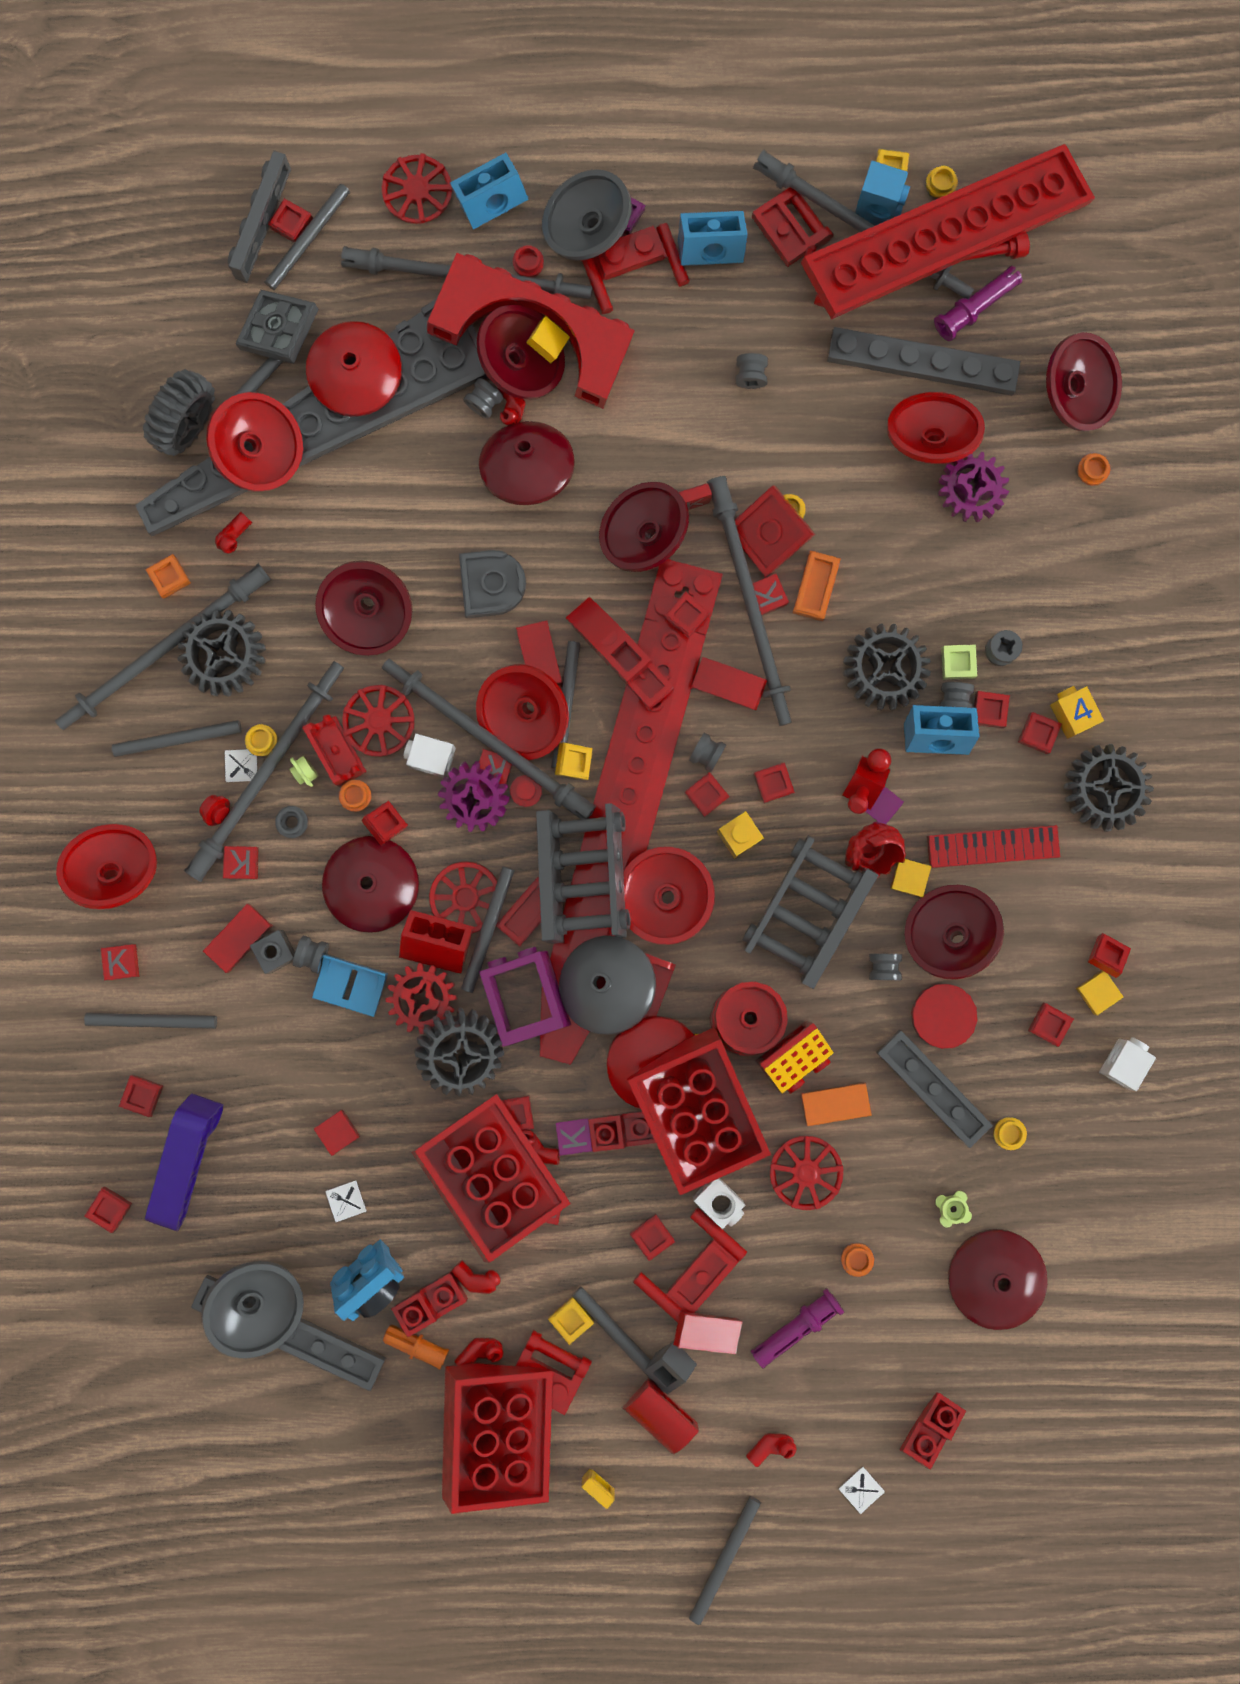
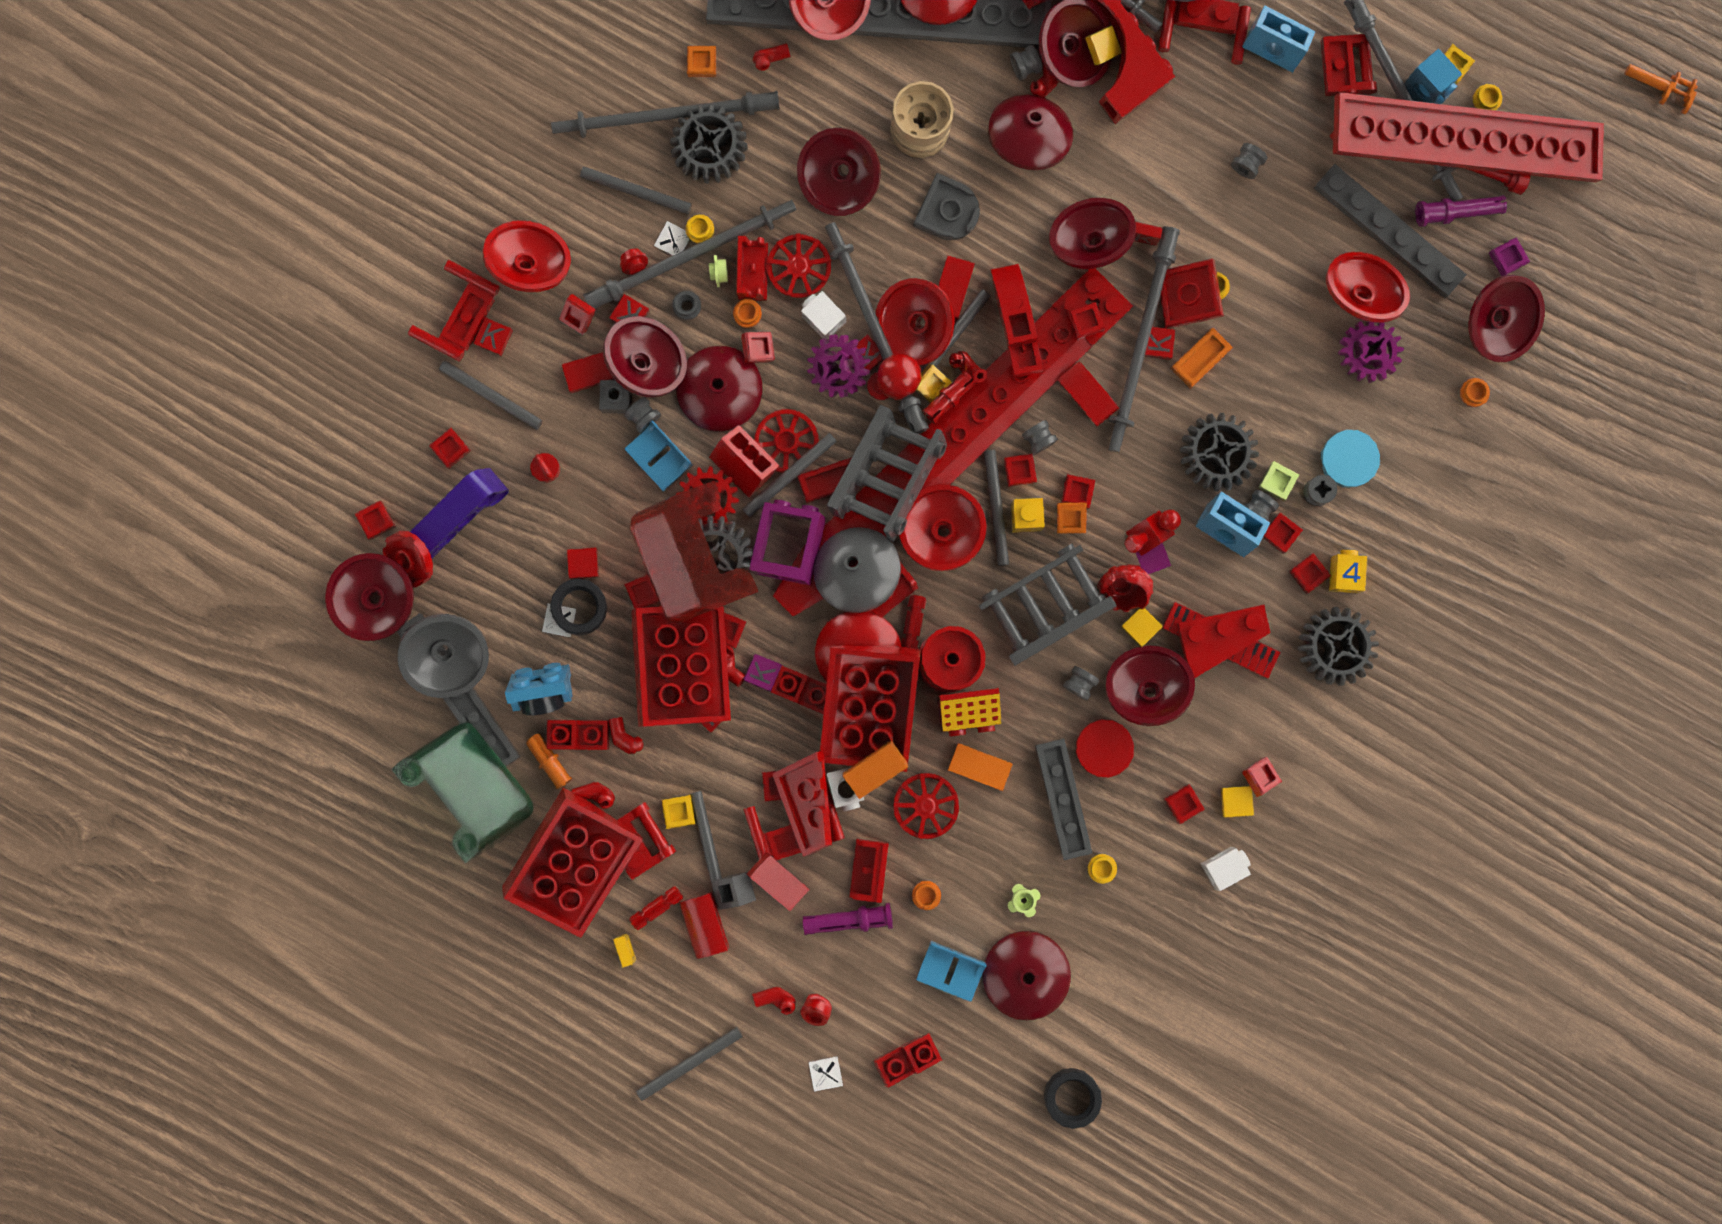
camera: 30 degrees right, 0 degrees up
(82, 959) = (466, 316): none -> red plate
(128, 1302) = (351, 591): none -> dark red dish
(162, 1231) = (410, 545): none -> red tile
(189, 893) = (577, 314): none -> red tile
(245, 1060) = (545, 467): none -> red tile
(282, 883) = (653, 348): none -> dark red dish
(335, 1167) = (565, 589): none -> black tyre
(352, 1422) = (471, 786): none -> clear green windscreen
(412, 494) = (922, 104): none -> tan wheel
(412, 1126) = (641, 592): none -> red tile
(429, 1077) = (680, 557): none -> clear red windscreen
(538, 773) = (898, 376): none -> red hair
(597, 764) = (948, 397): none -> red pin
(598, 724) = (966, 363): none -> red arm
(604, 1428) = (656, 908): none -> red axle
(690, 1241) = (806, 802): none -> red wing
(691, 1003) = (913, 621): none -> red axle
(705, 844) = (996, 507): none -> dark grey bar
(739, 1171) = (875, 770): none -> orange tile
(783, 812) = (1071, 517): none -> orange tile
(788, 1269) = (869, 870): none -> red hinge
(817, 1437) = (816, 1010): none -> red tile
(940, 1316) = (964, 978): none -> dark azure piece
(992, 844) = (1220, 636): none -> red wing
(1013, 600) = (1350, 458): none -> medium azure tile
(1050, 321) = (1509, 257): none -> magenta tile
(1101, 75) = (1665, 85): none -> orange piece
(1135, 1385) = (1095, 1098): none -> black tyre

